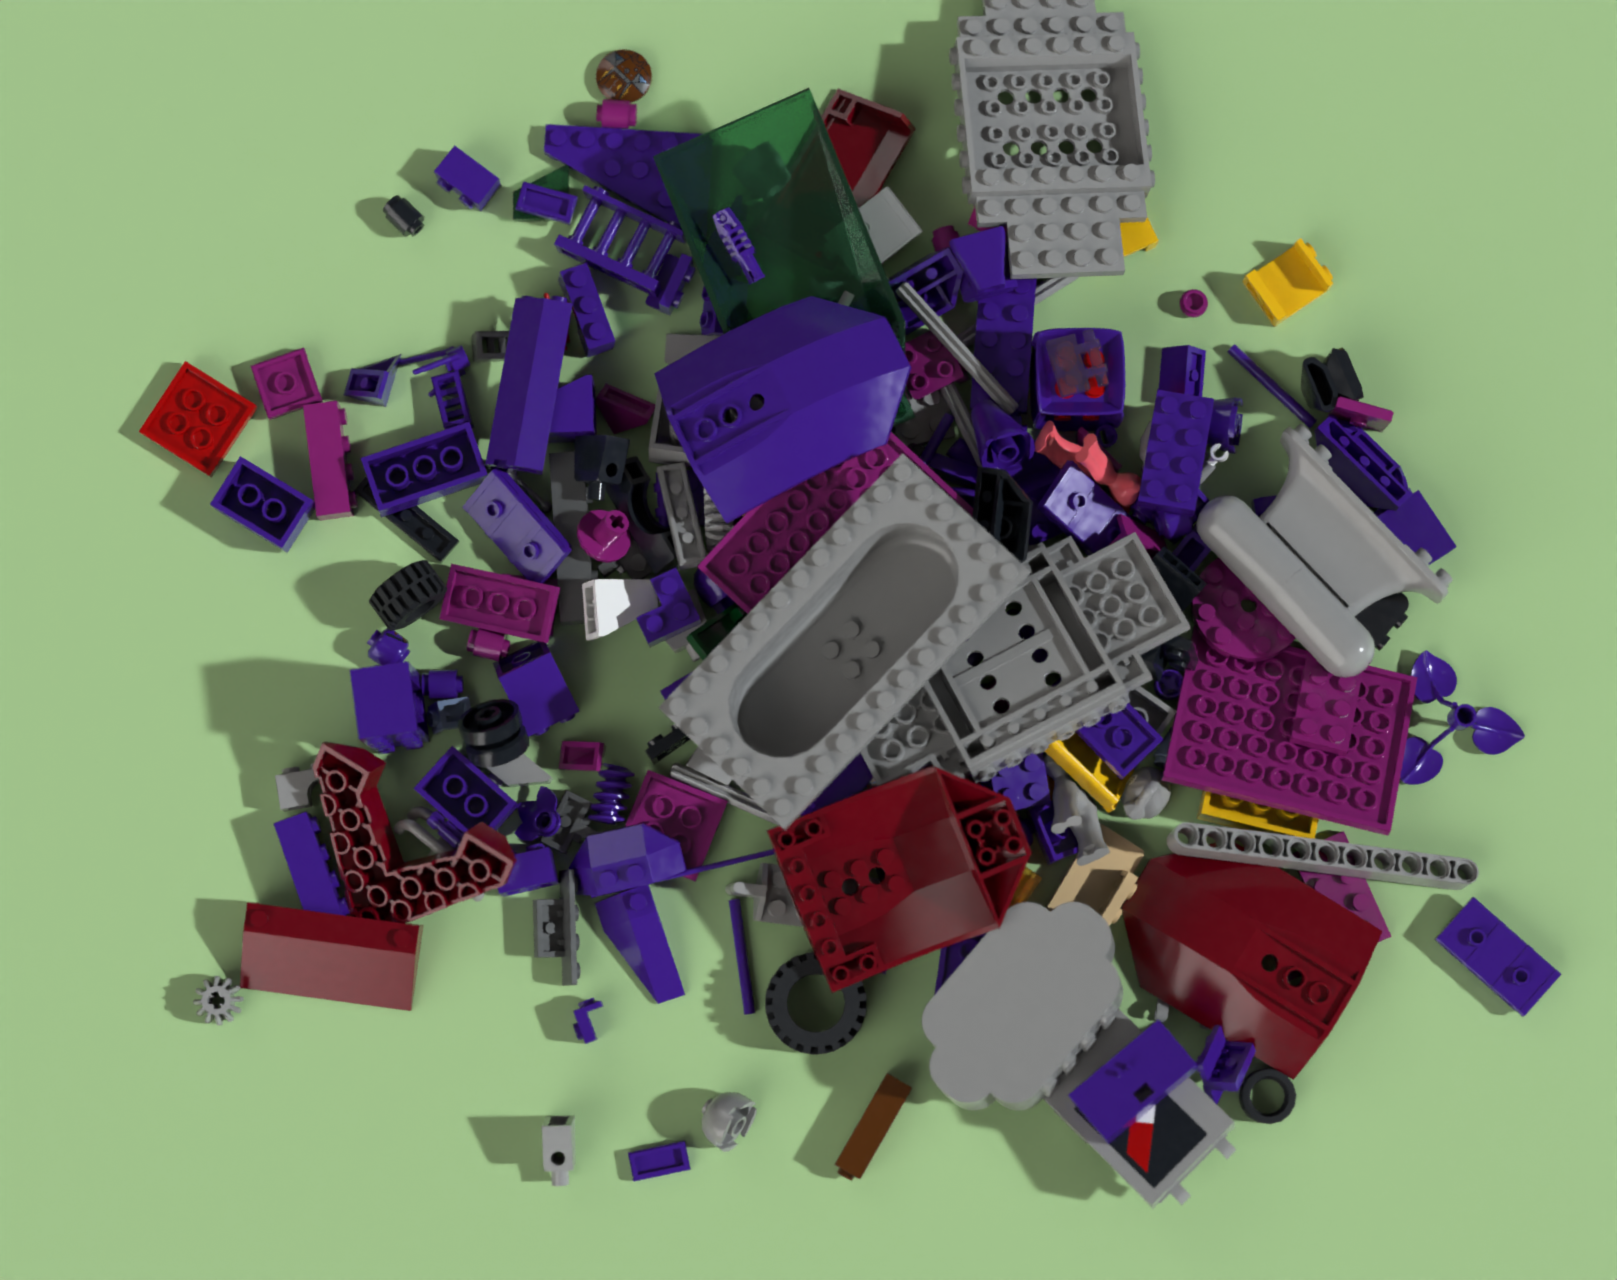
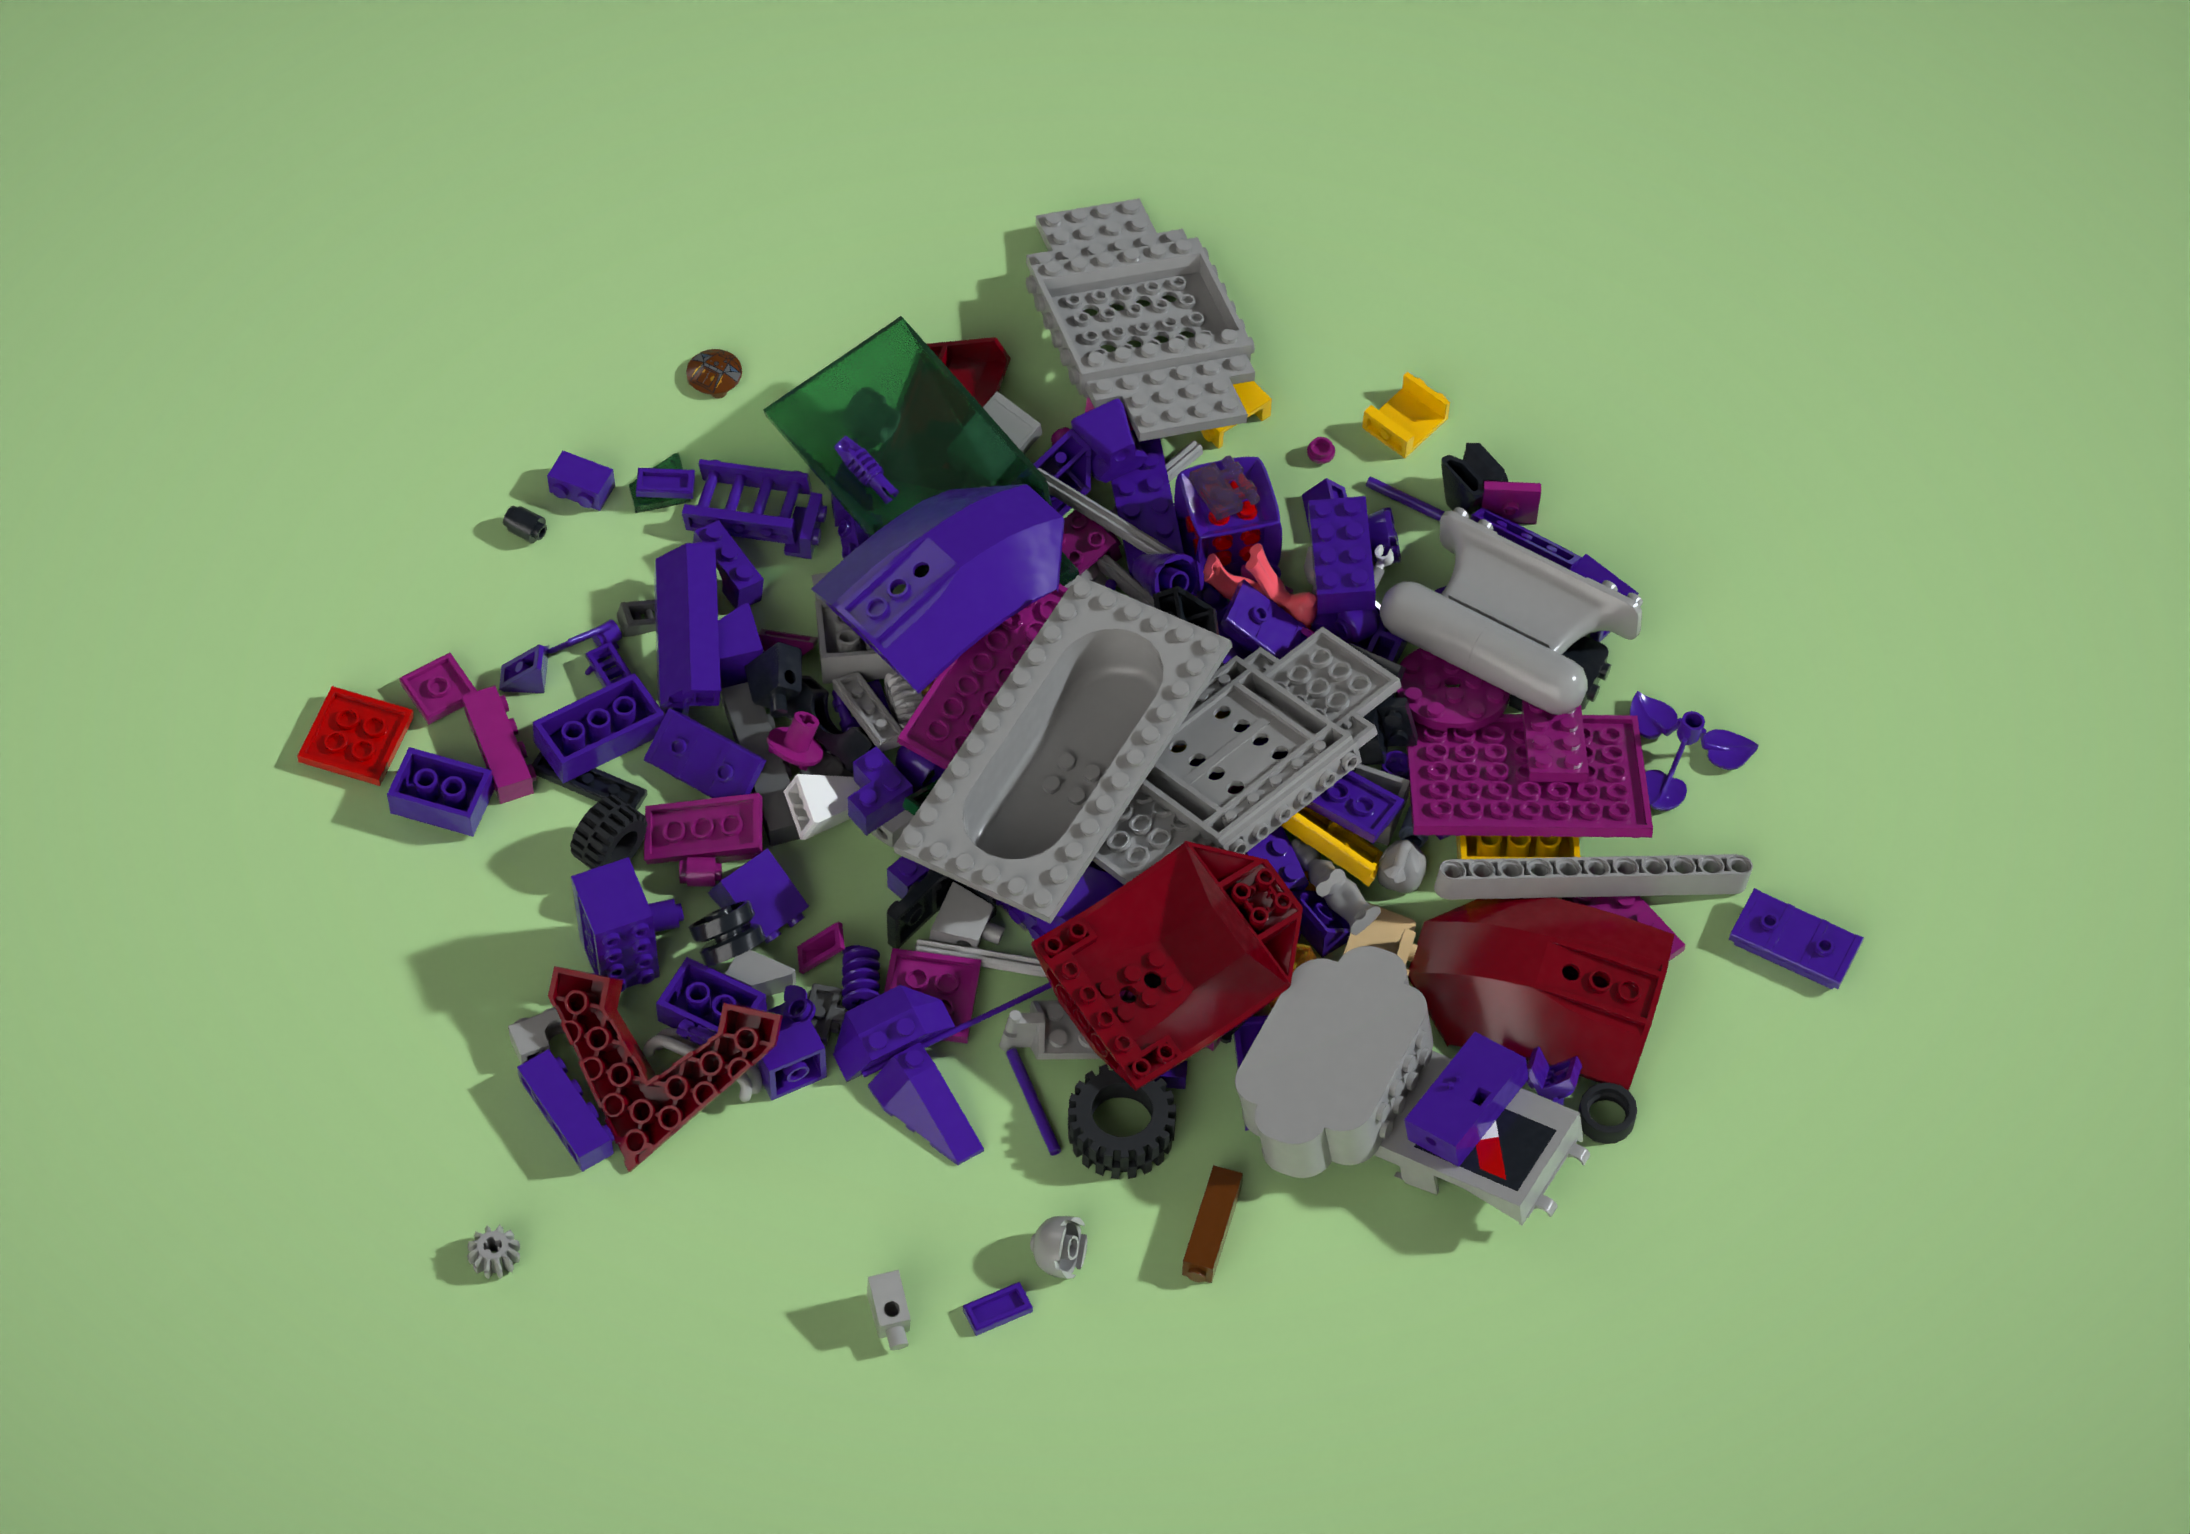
camera: 15 degrees left, 25 degrees down
(330, 956) = (603, 1183): dark red slope -> none
(446, 713) = (675, 941): sand blue bracket -> none
(556, 927) = (835, 1110): dark grey bracket -> none
(584, 1027) = (885, 1192): dark purple bracket -> none
(616, 114) = (715, 400): magenta brick -> none
(618, 161) = (730, 437): dark purple wing -> none

